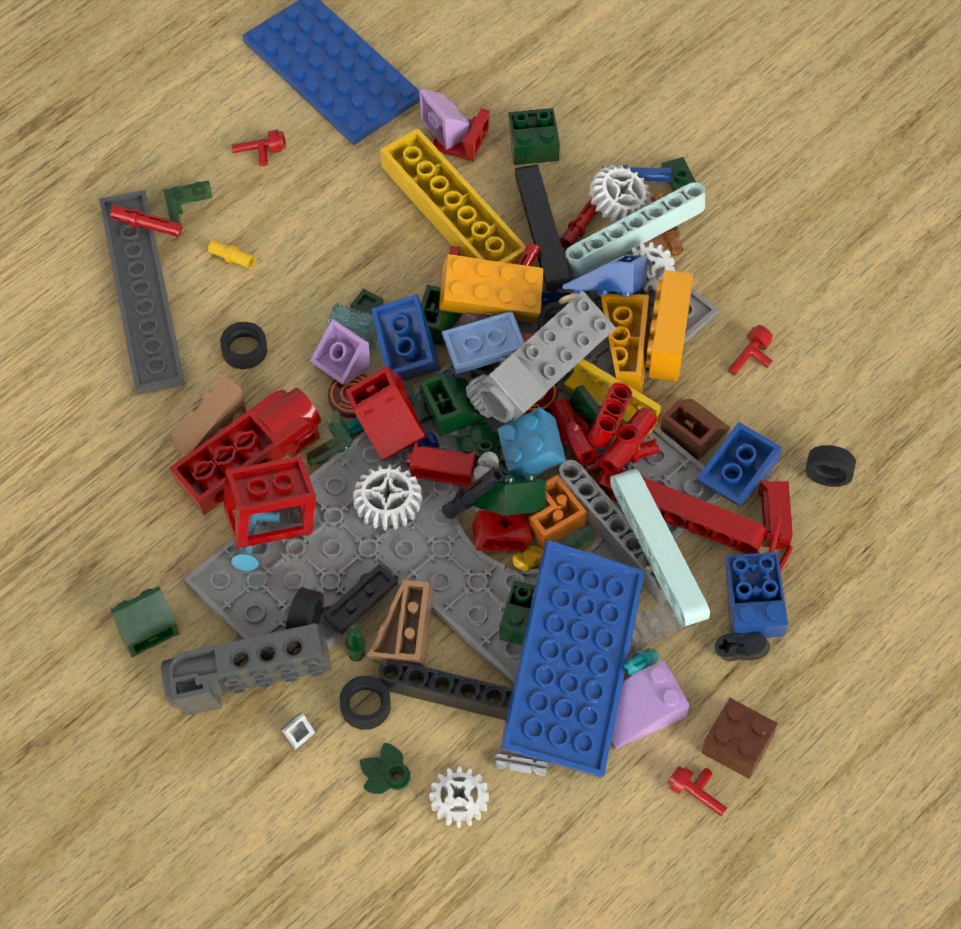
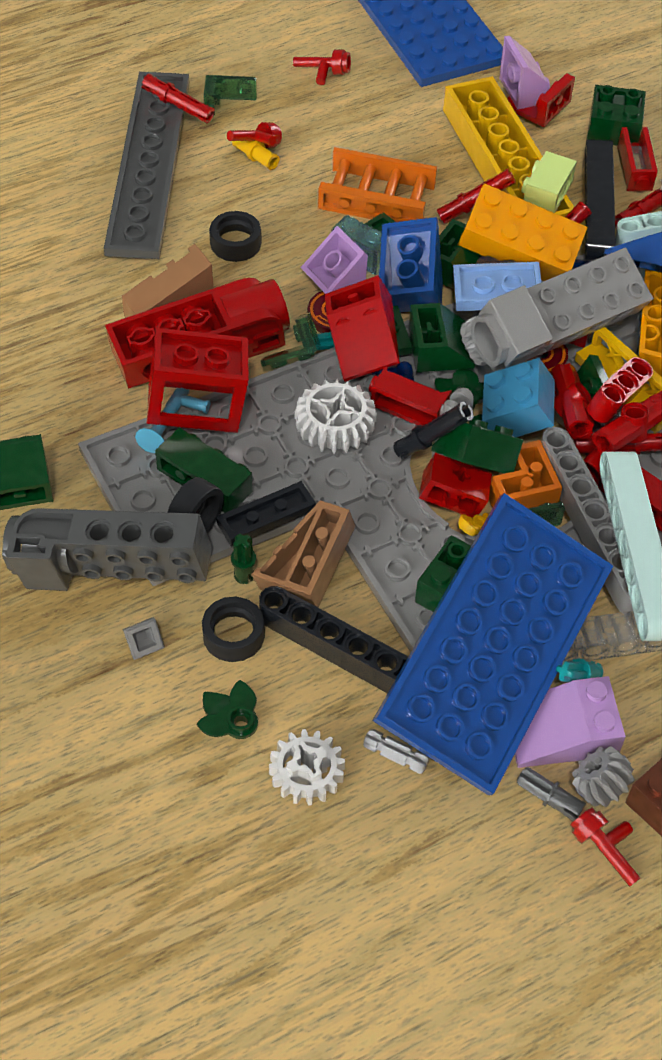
camera: 15 degrees right, 5 degrees down
(235, 235) = (266, 133): none -> red piece
(290, 572) = (187, 457): none -> dark green brick
(350, 283) = (370, 204): none -> orange fence
(435, 257) = (466, 201): none -> red pin
(498, 230) = (549, 181): none -> yellowish green brick
(564, 177) = (638, 161): none -> red window
(645, 763) = (551, 793): none -> dark grey axle
(680, 739) = (603, 776): none -> light grey gear

